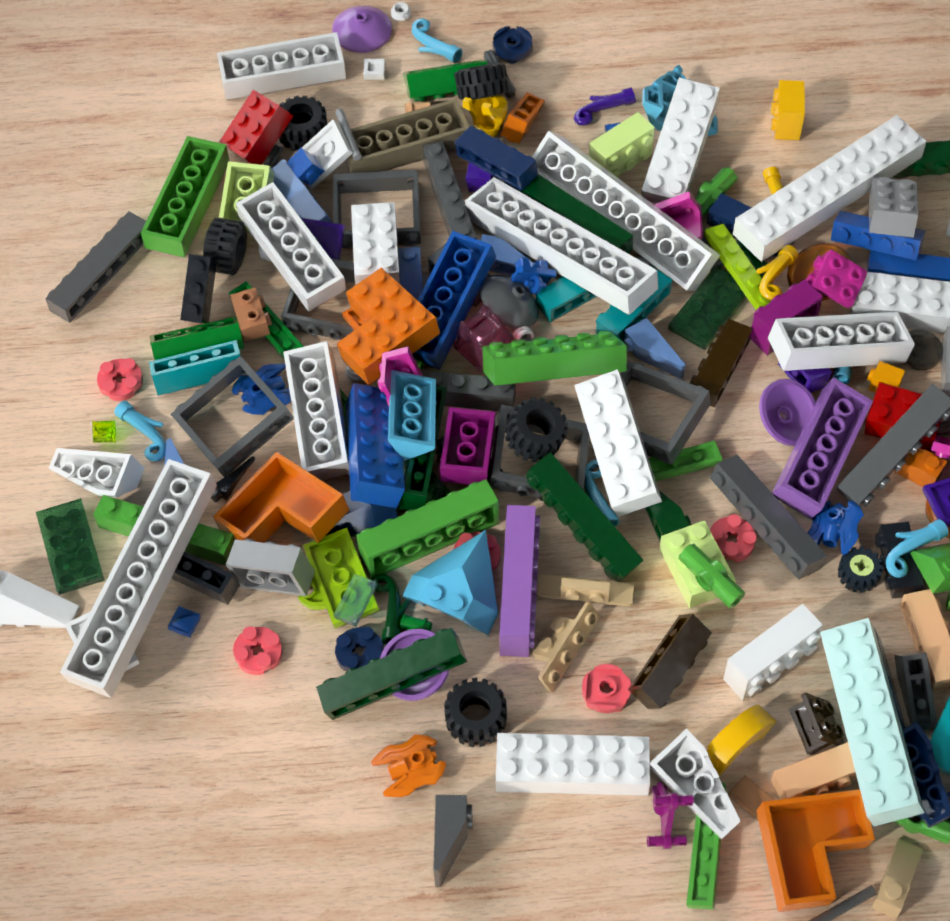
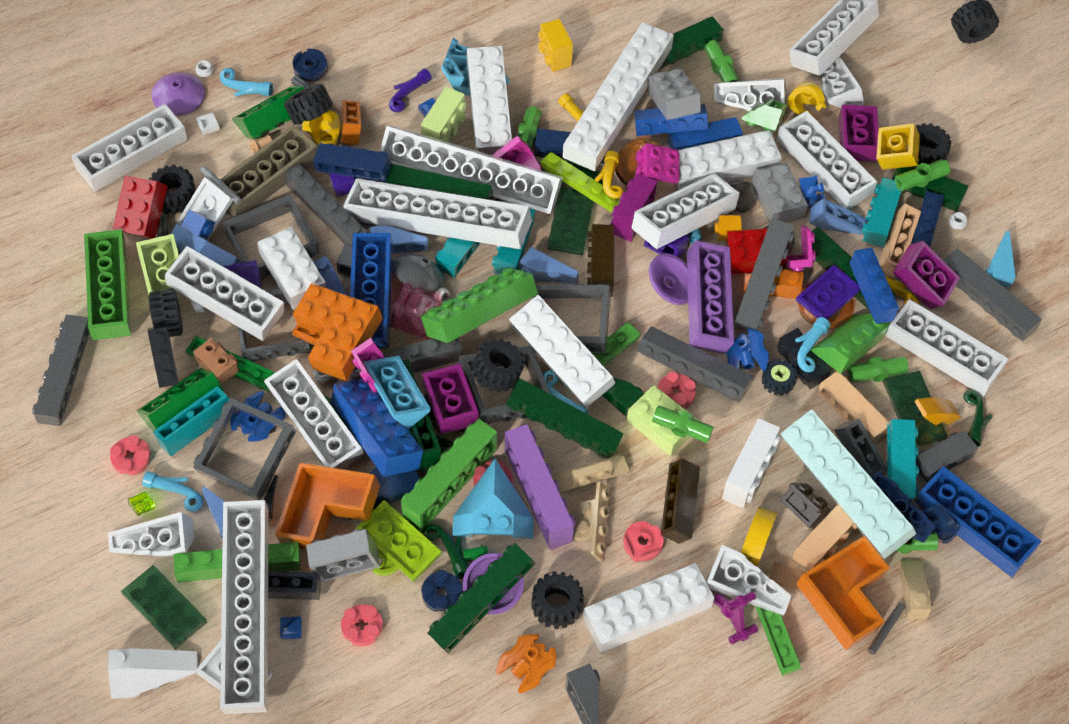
camera: 30 degrees left, 0 degrees up
(355, 600) = (421, 553): clear light blue tile -> none
(533, 277) = (428, 245): blue hips -> none

